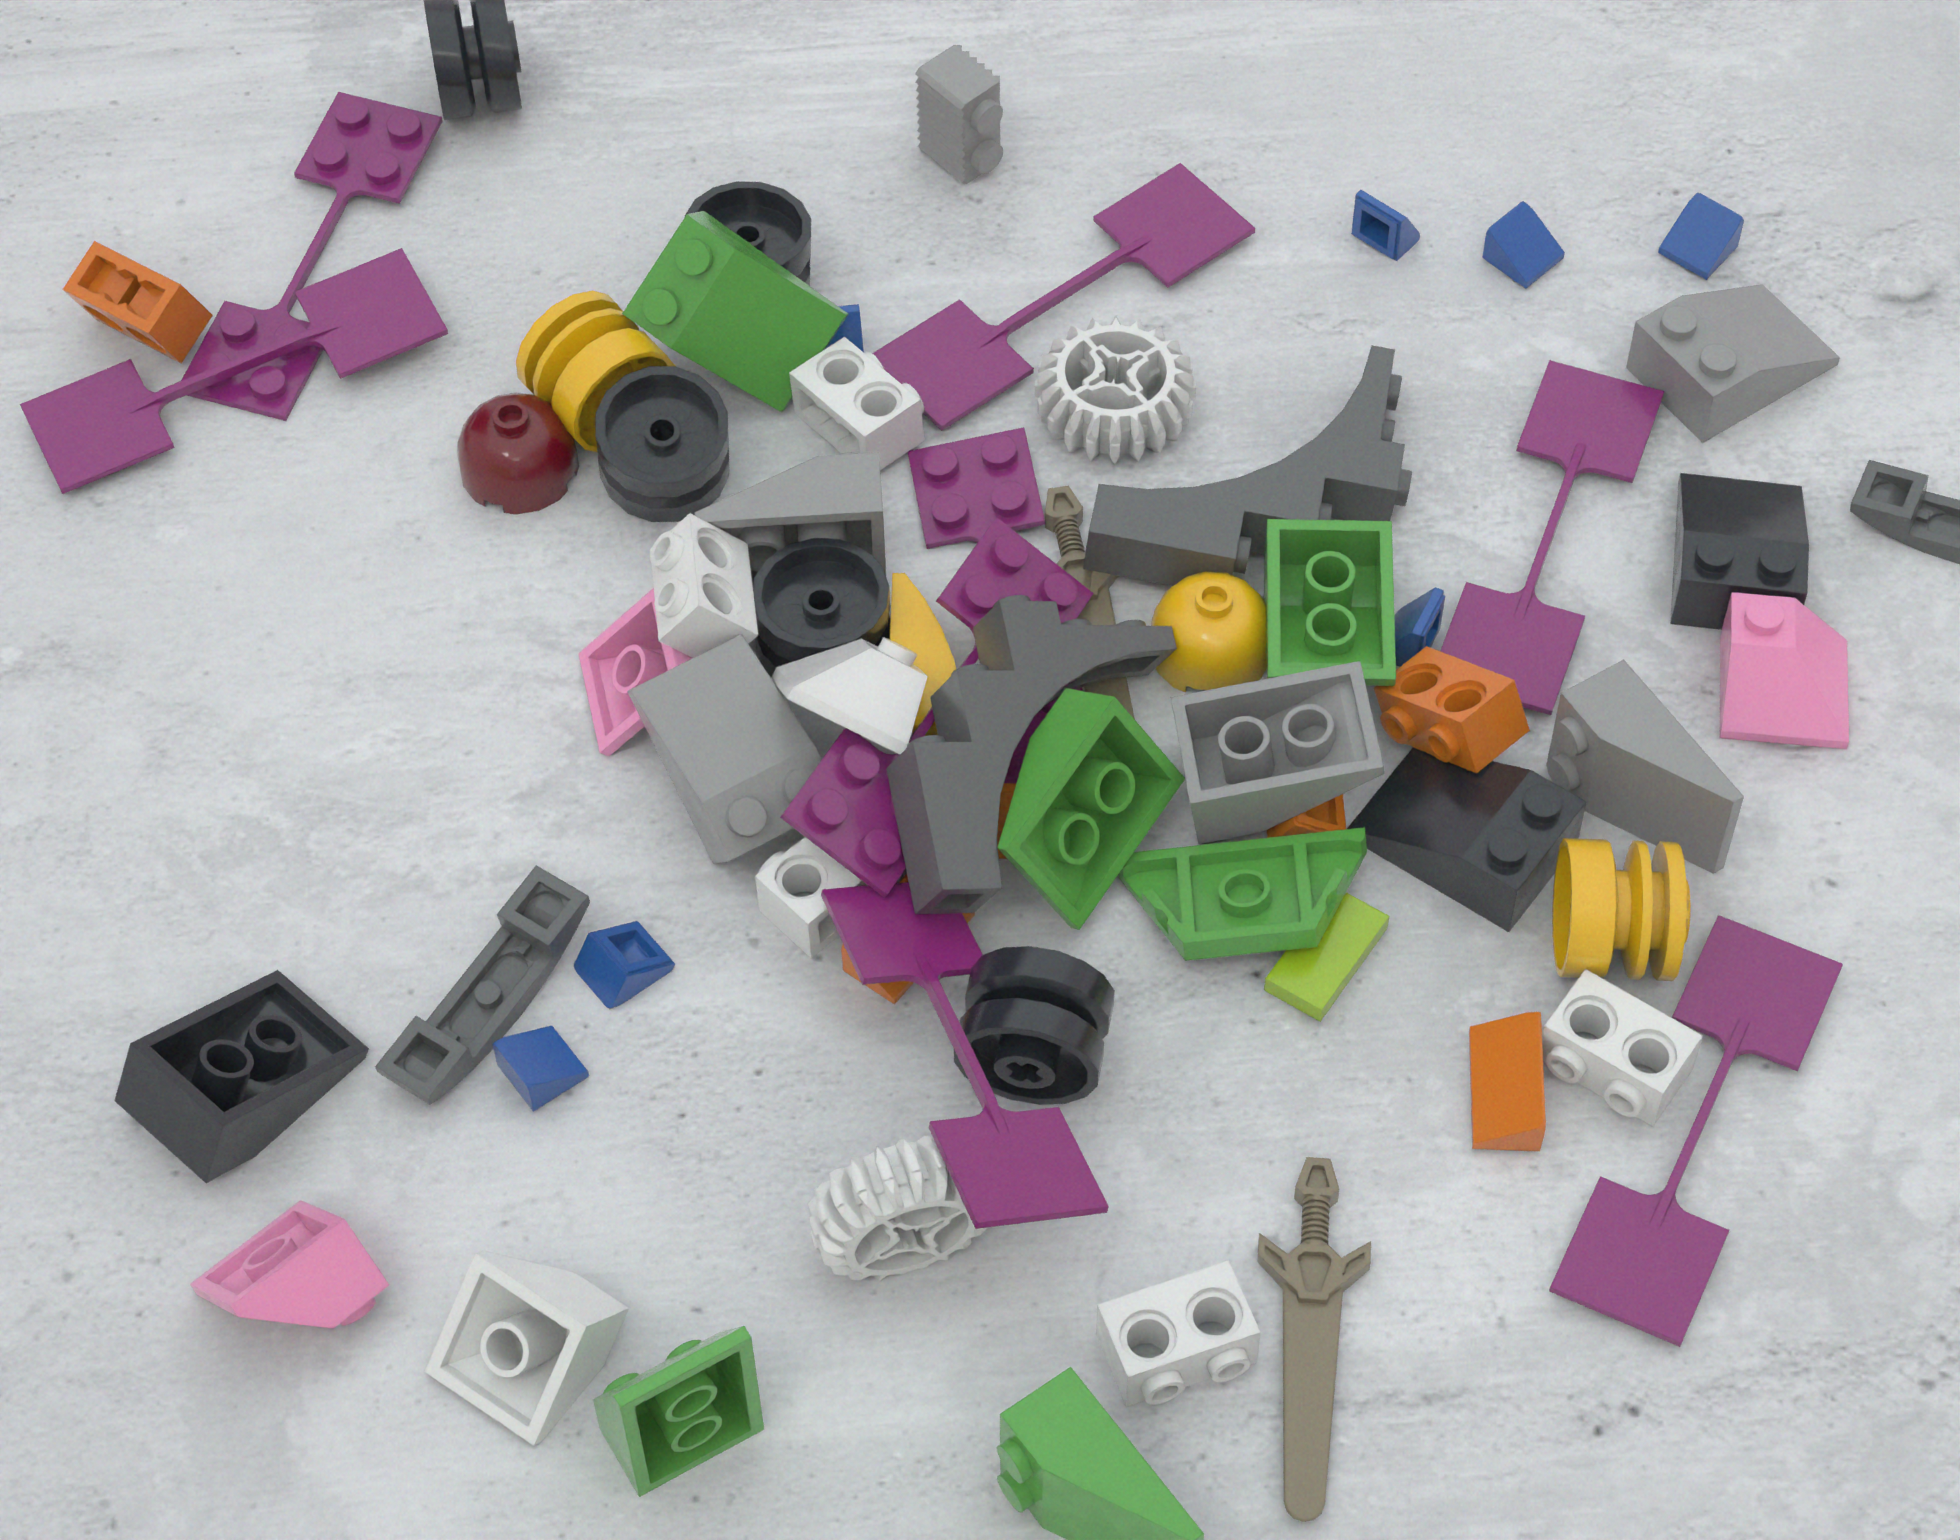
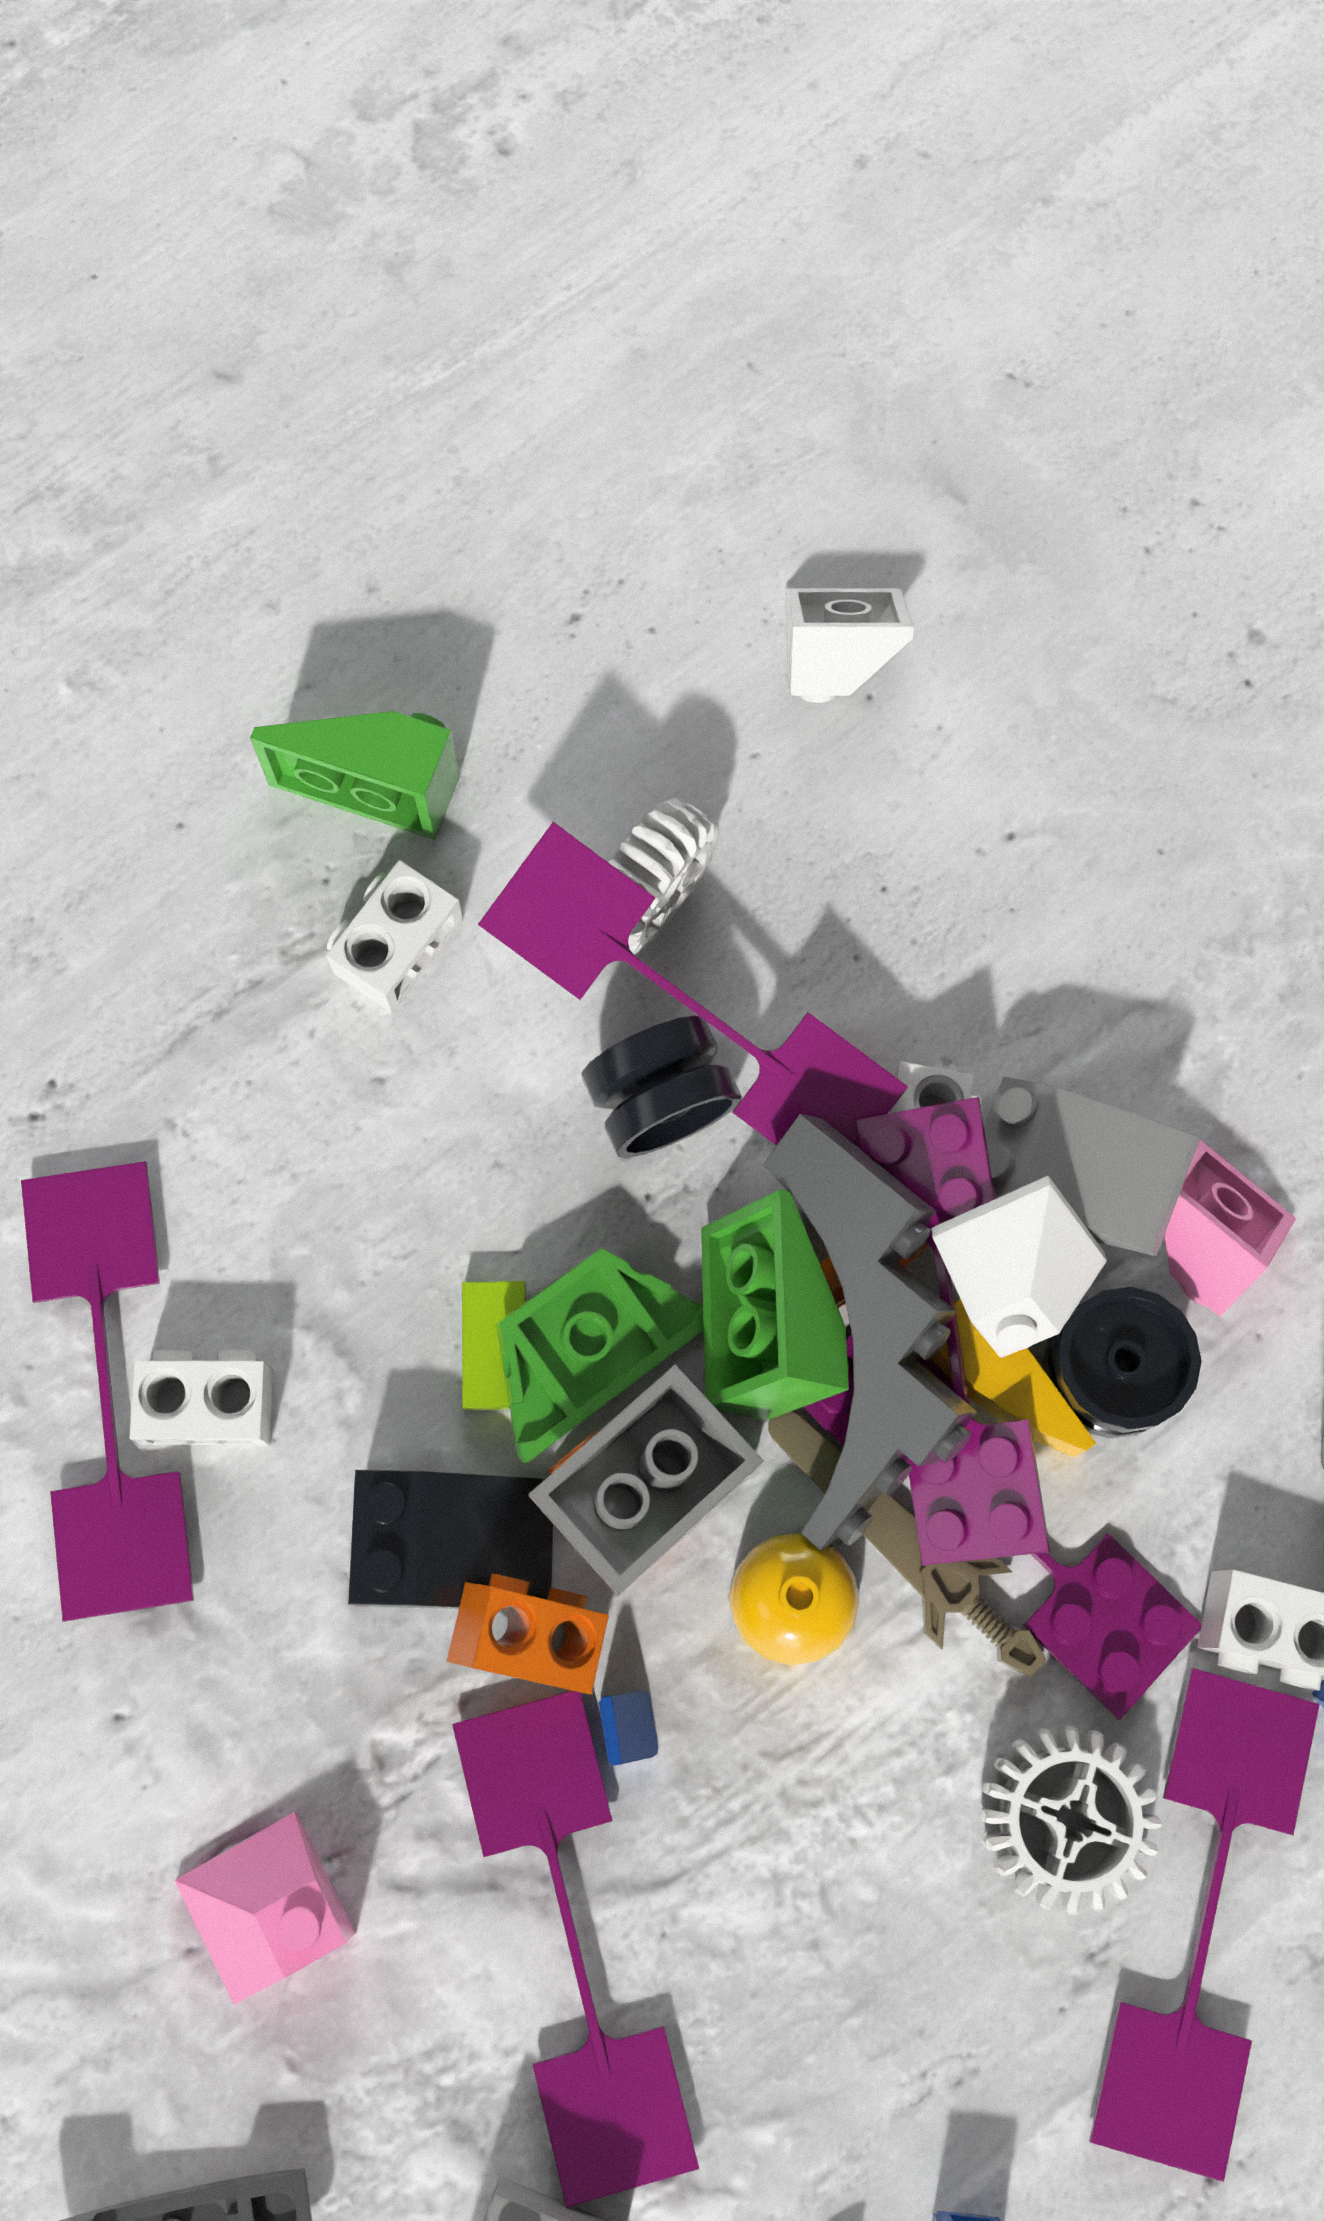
camera: 140 degrees right, 20 degrees up
(235, 1073) = (1215, 694): black slope -> none
(297, 1272) = (1041, 573): bright pink slope -> none
(492, 992) = (1097, 866): dark grey slope -> none
(539, 1065) = (1015, 845): blue slope -> none
(621, 962) = (1026, 973): blue slope -> none
(682, 1409) = (698, 634): bright green slope -> none
(702, 587) = (1211, 1293): white brick -> none
(812, 500) = (1202, 1450): light grey slope -> none
(1212, 527) = (795, 1863): dark grey arch -> none
(1312, 1304) = (325, 1049): dark tan sword -> none
(1330, 597) = (698, 1670): bright green slope -> none
(1507, 1083) = (278, 1319): orange slope -> none
(1628, 909) = (262, 1517): yellow wheel -> none
(1641, 767) = (344, 1687): light grey slope -> none
(1735, 541) = (386, 2047): black slope -> none

